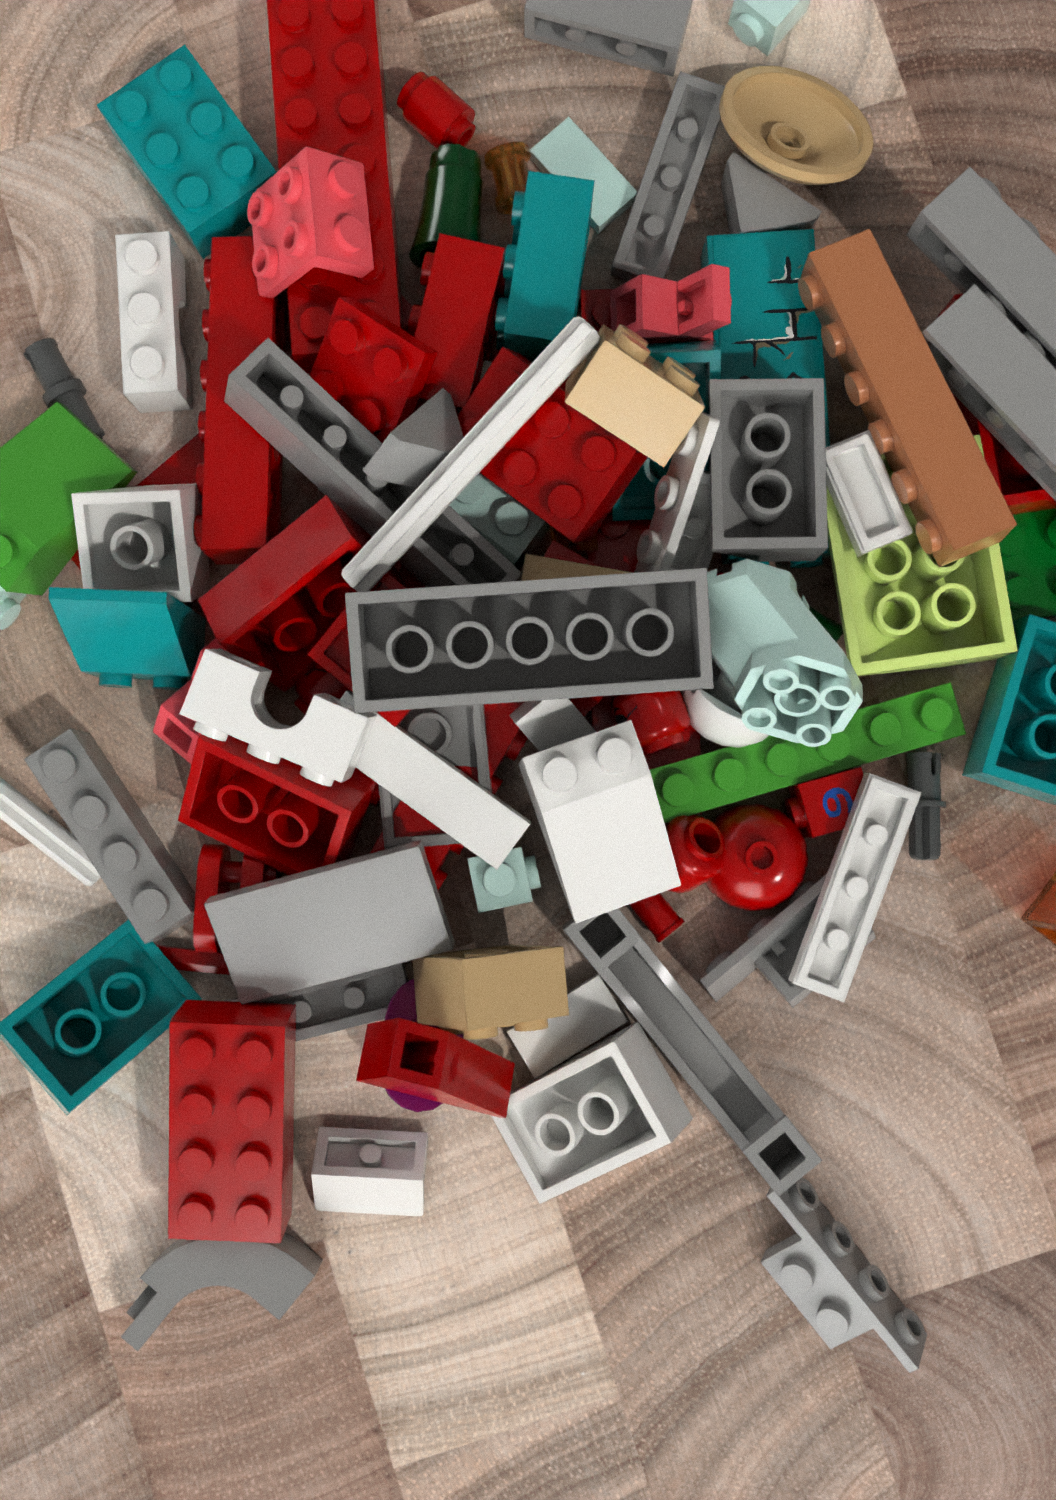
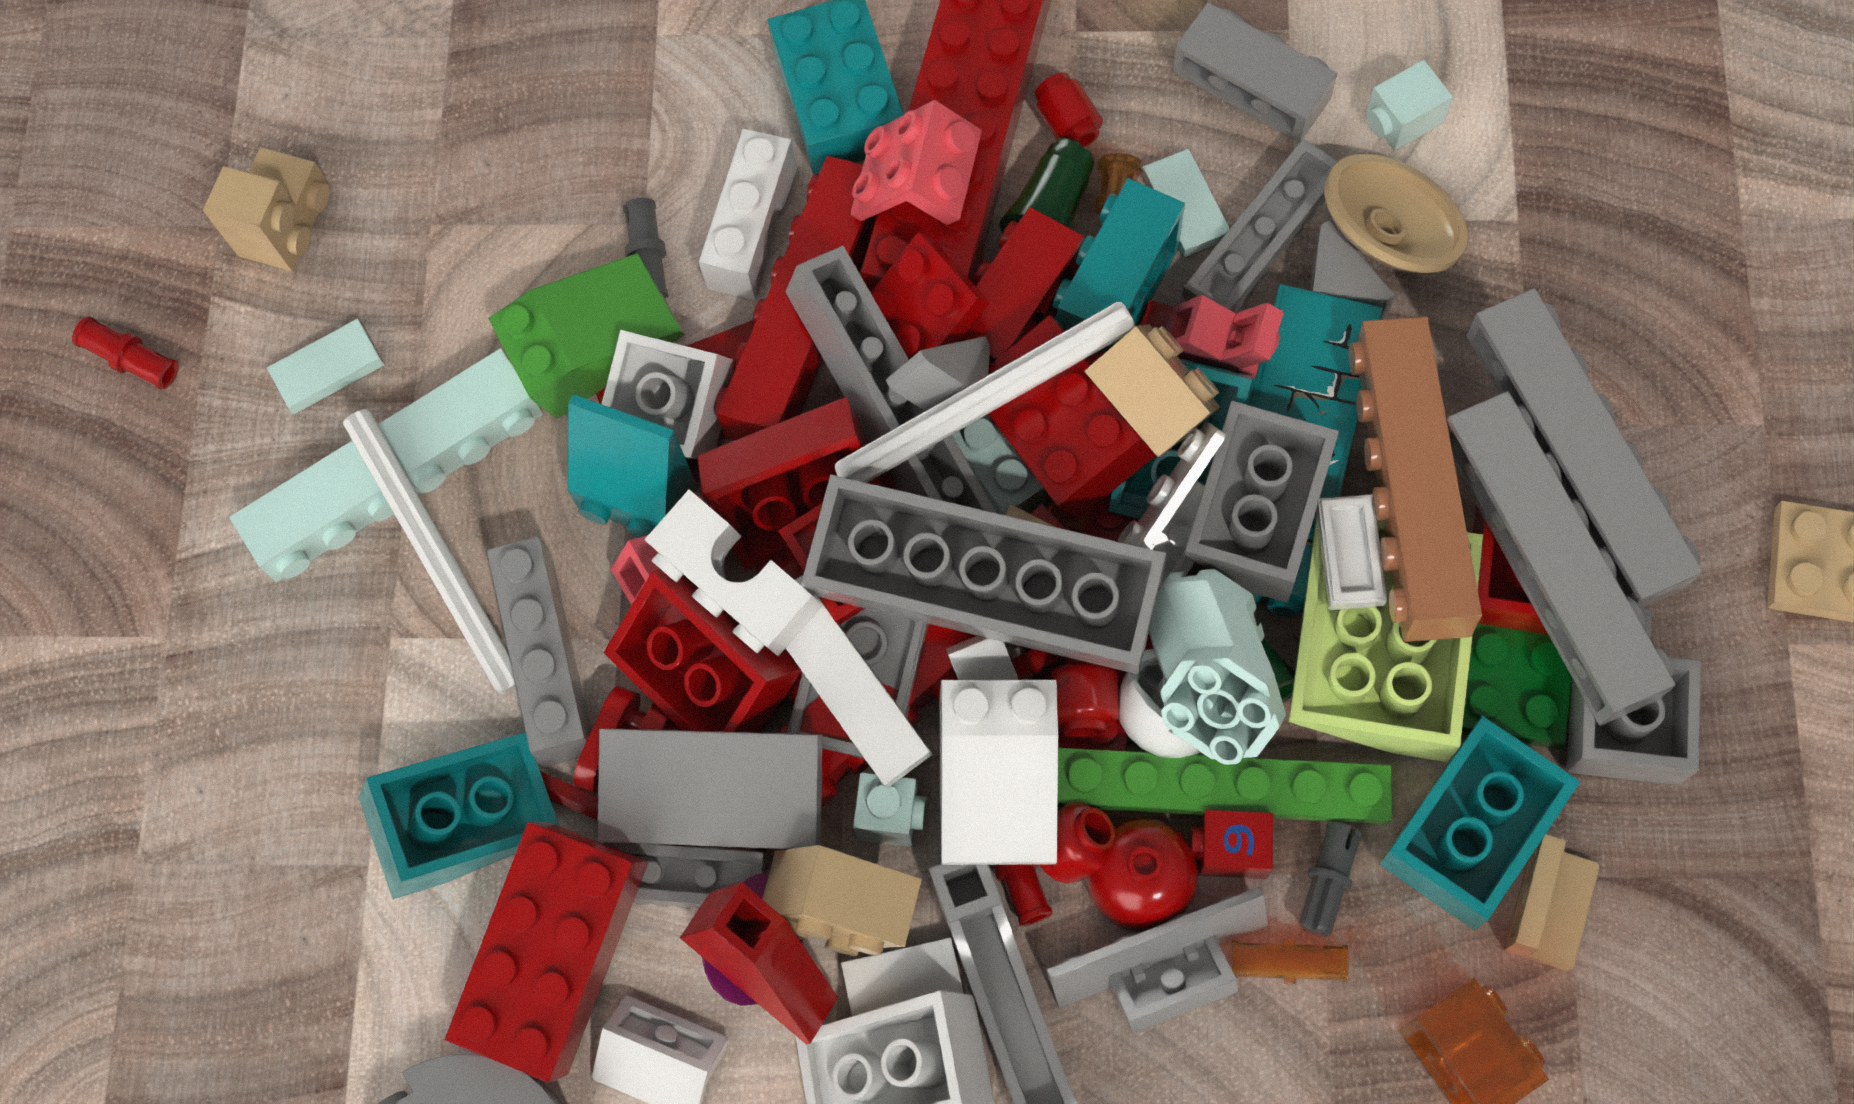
camera: 25 degrees right, 15 degrees down
(854, 886) = (1228, 925): white tile -> none
(916, 891) = (1290, 961): none -> clear orange pin

